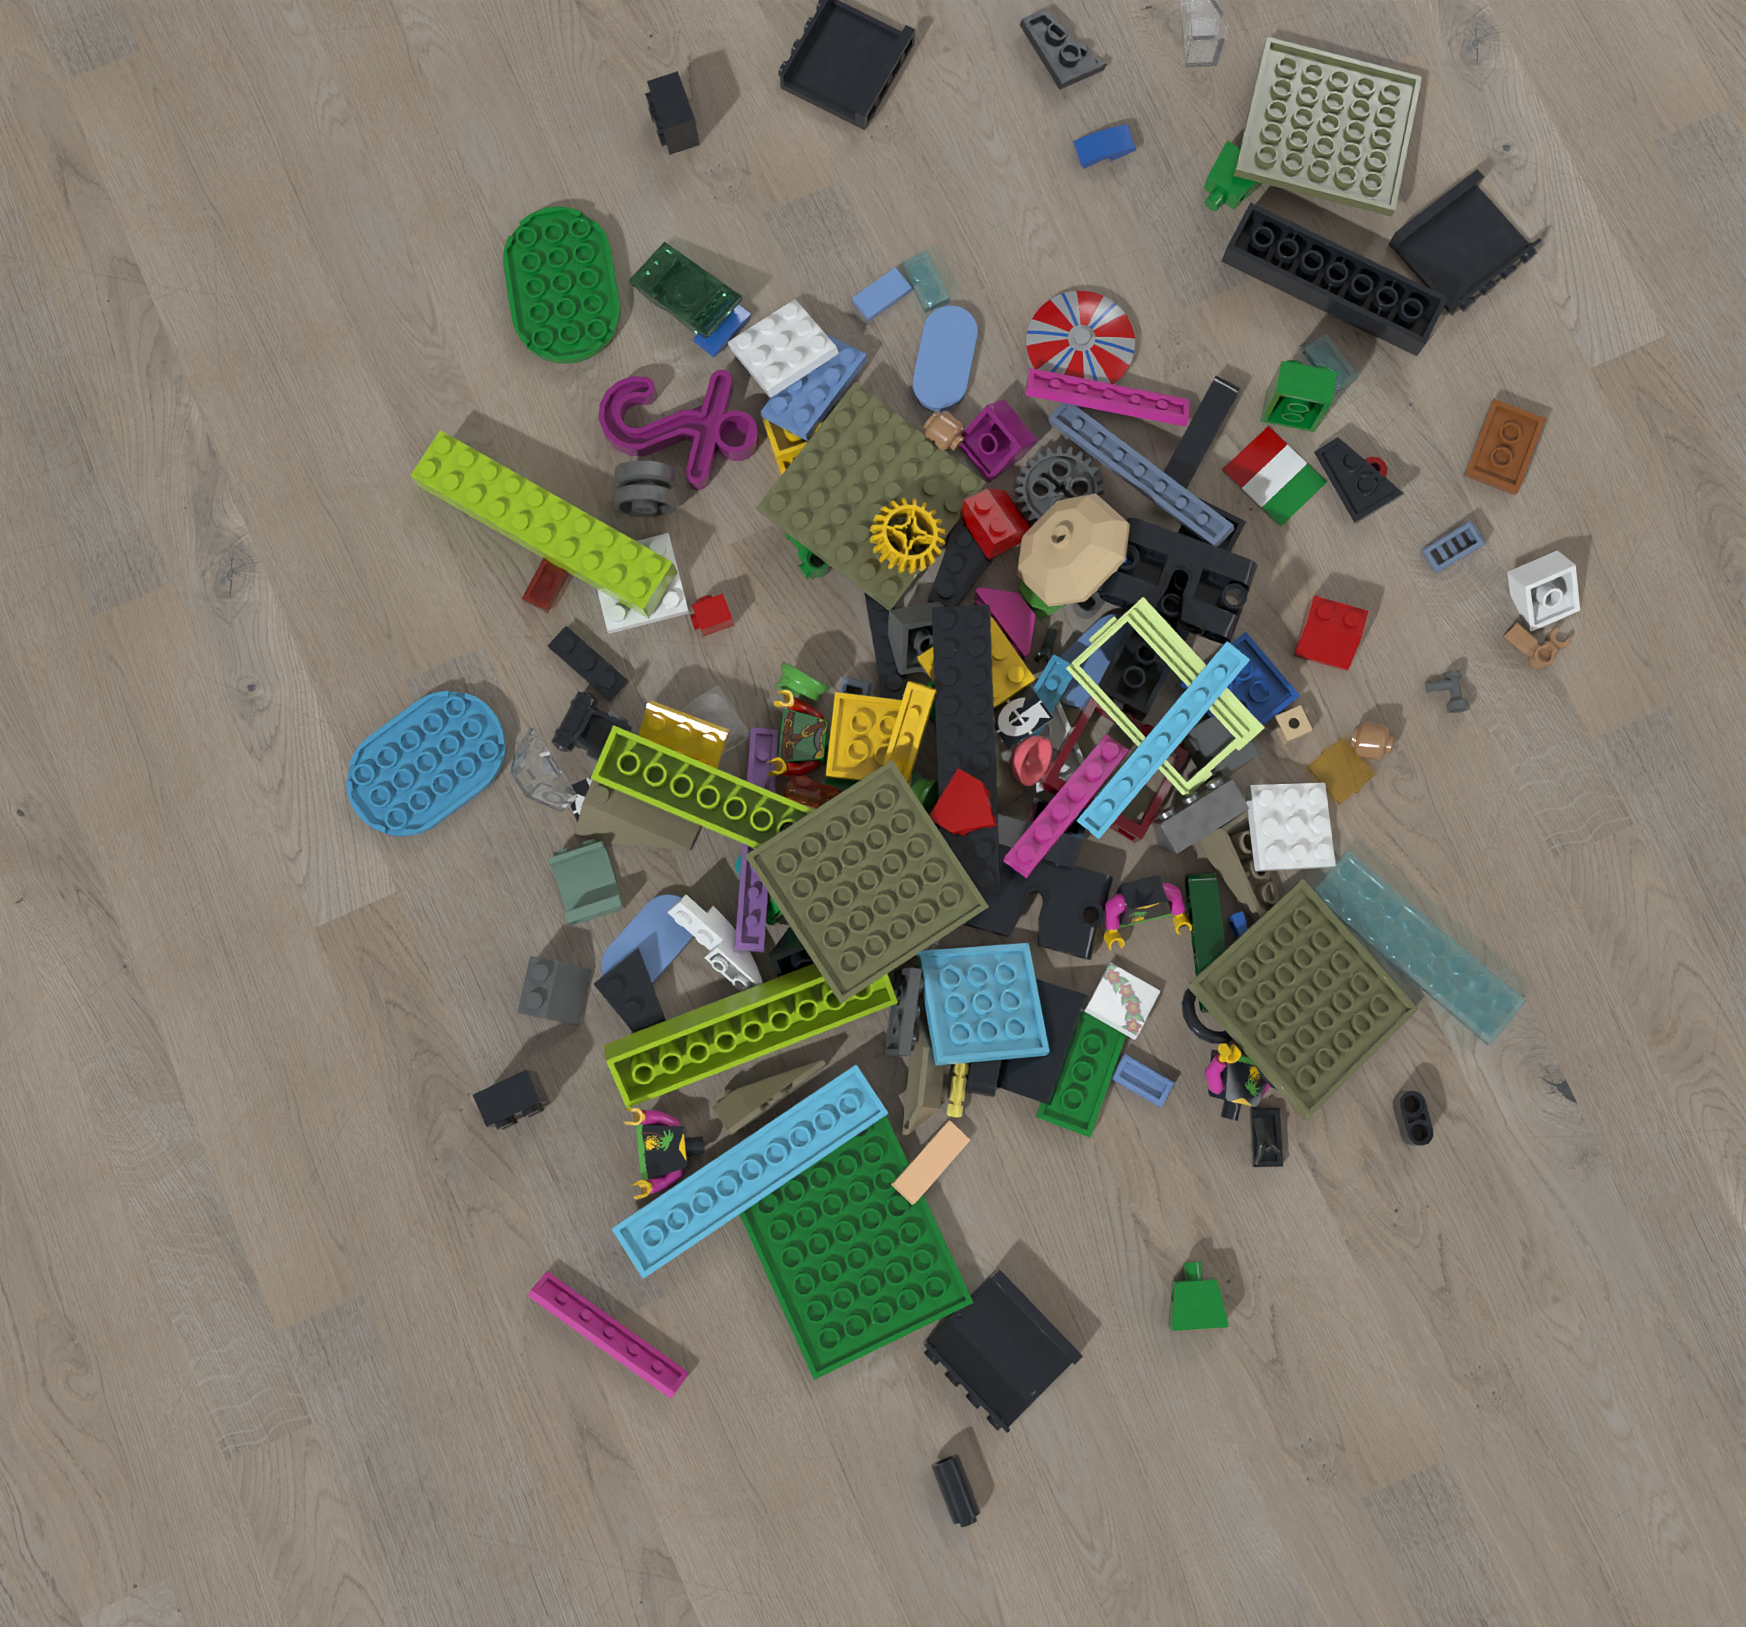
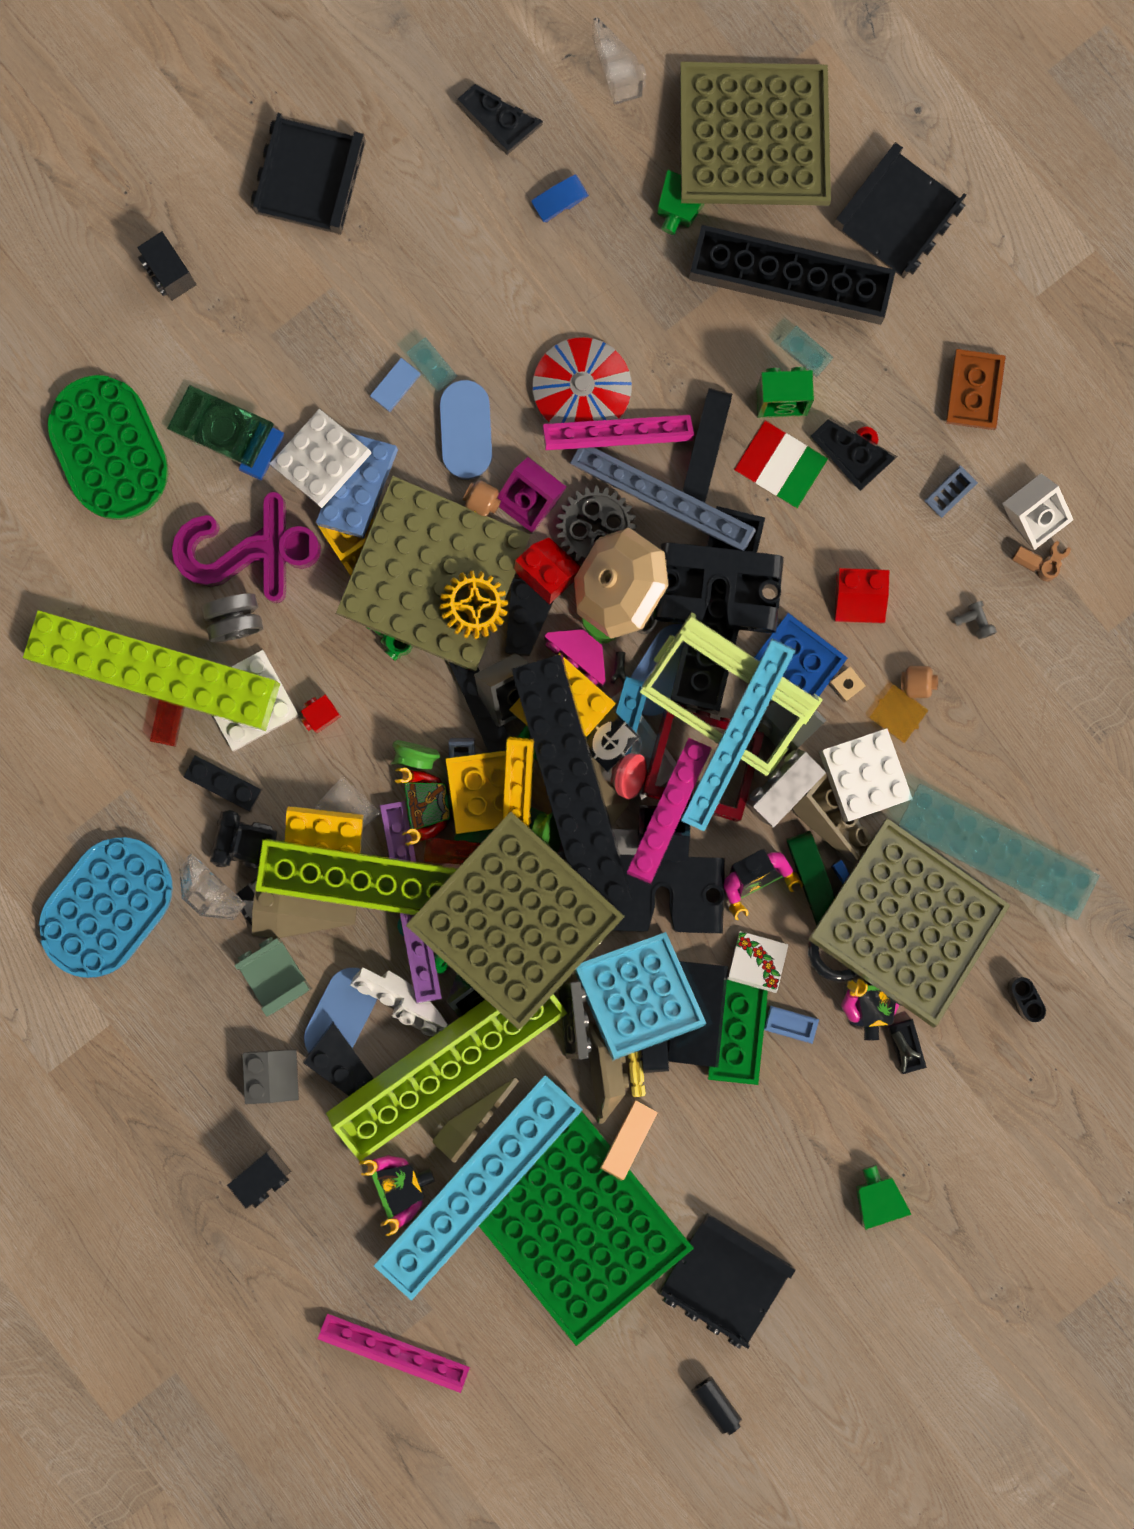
camera: 15 degrees left, 5 degrees up
(964, 805) = (581, 835): red slope -> none

